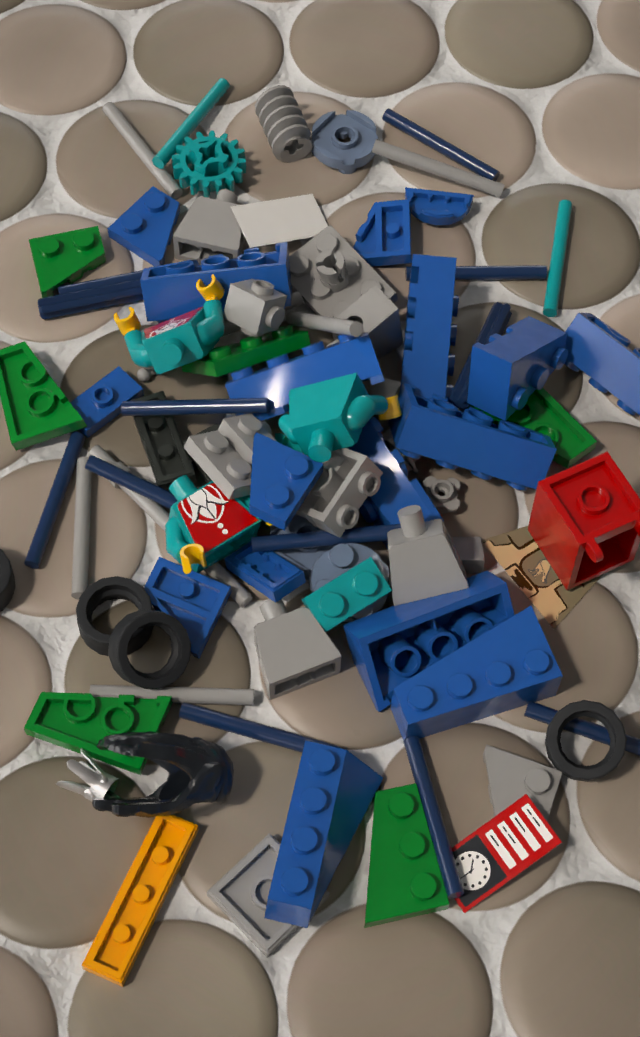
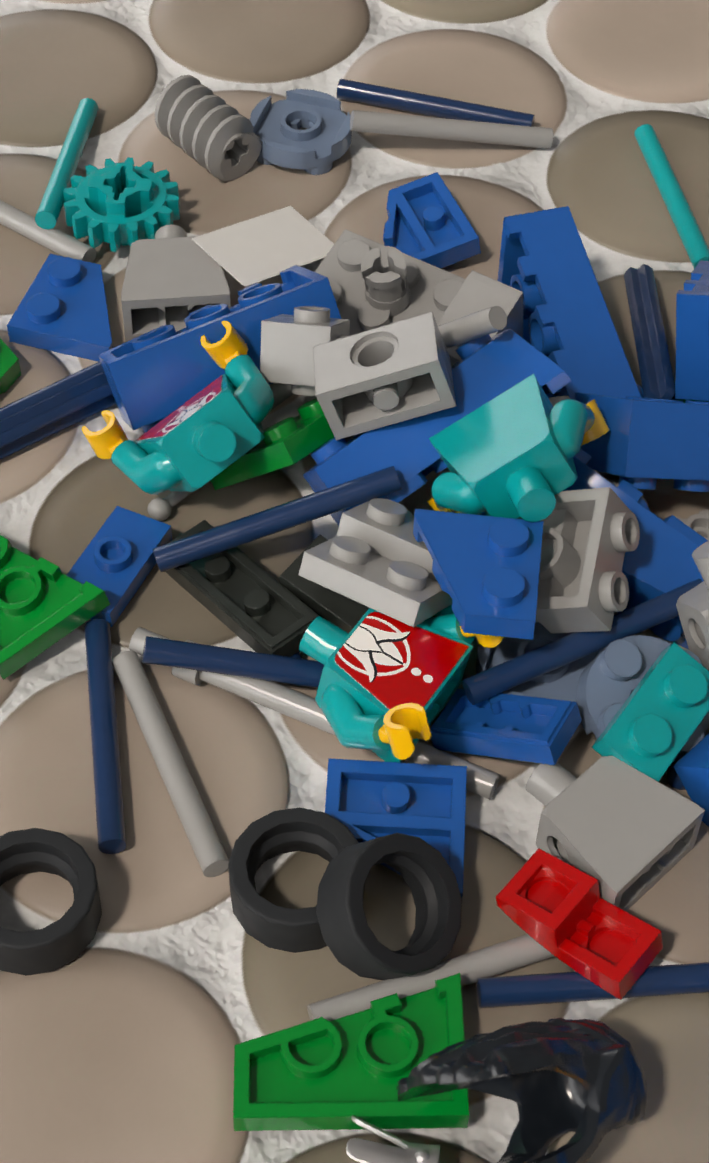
camera: 20 degrees left, 10 degrees down
(246, 692) = (572, 922): none -> red slope
(280, 342) = (383, 376): none -> light grey brick
(438, 206) = (478, 175): blue plate -> none
(516, 272) = (600, 236): dark blue bar -> none

